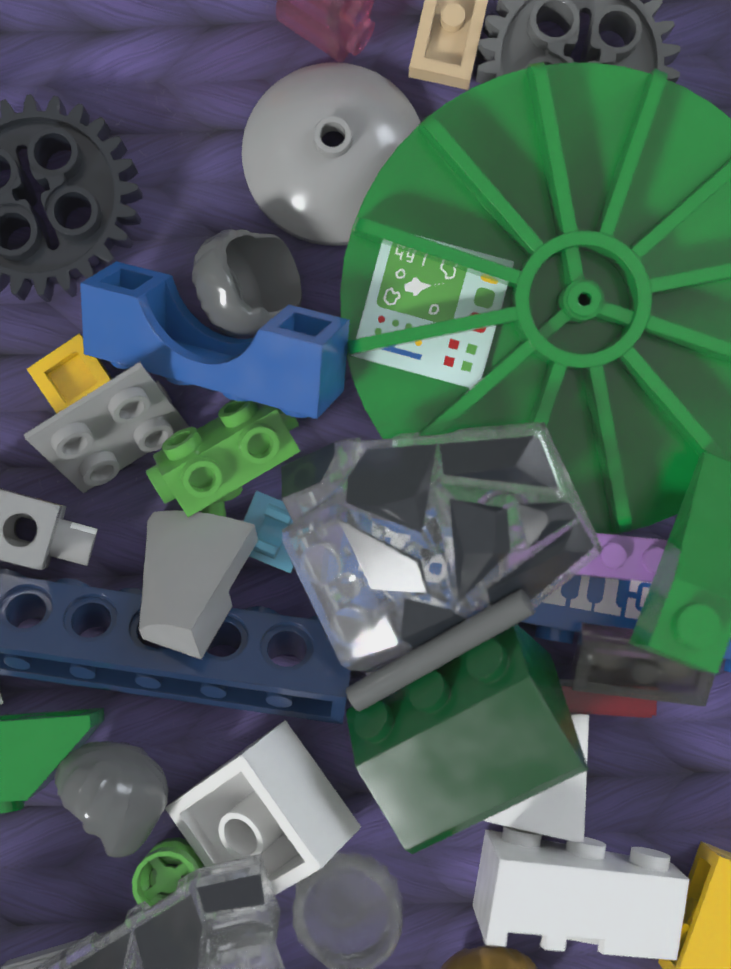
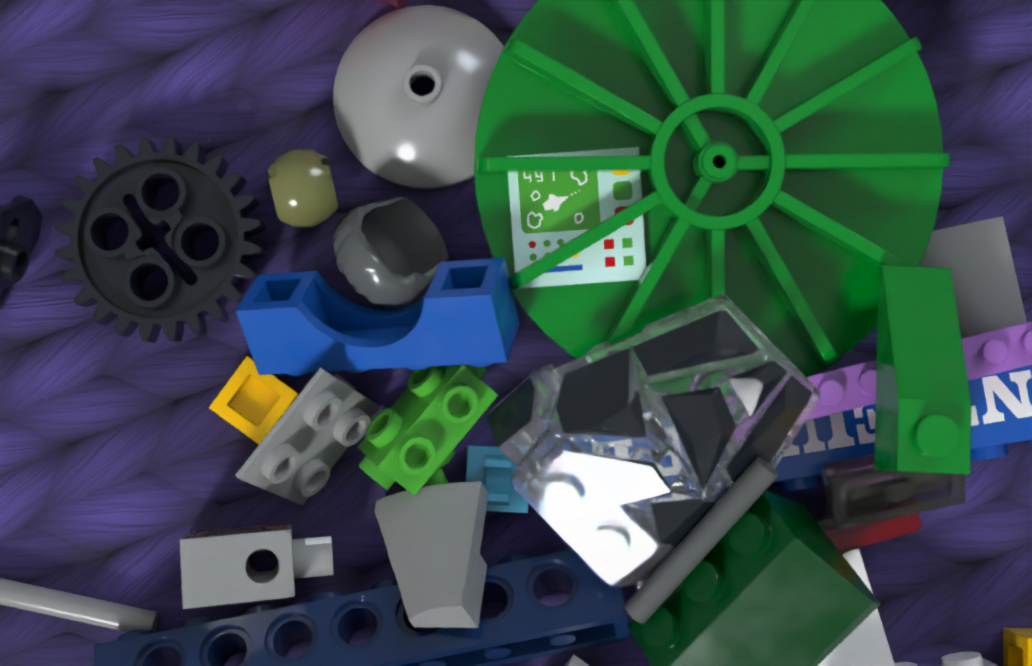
camera: 15 degrees left, 0 degrees up
(187, 196) = (302, 188): none -> olive piece

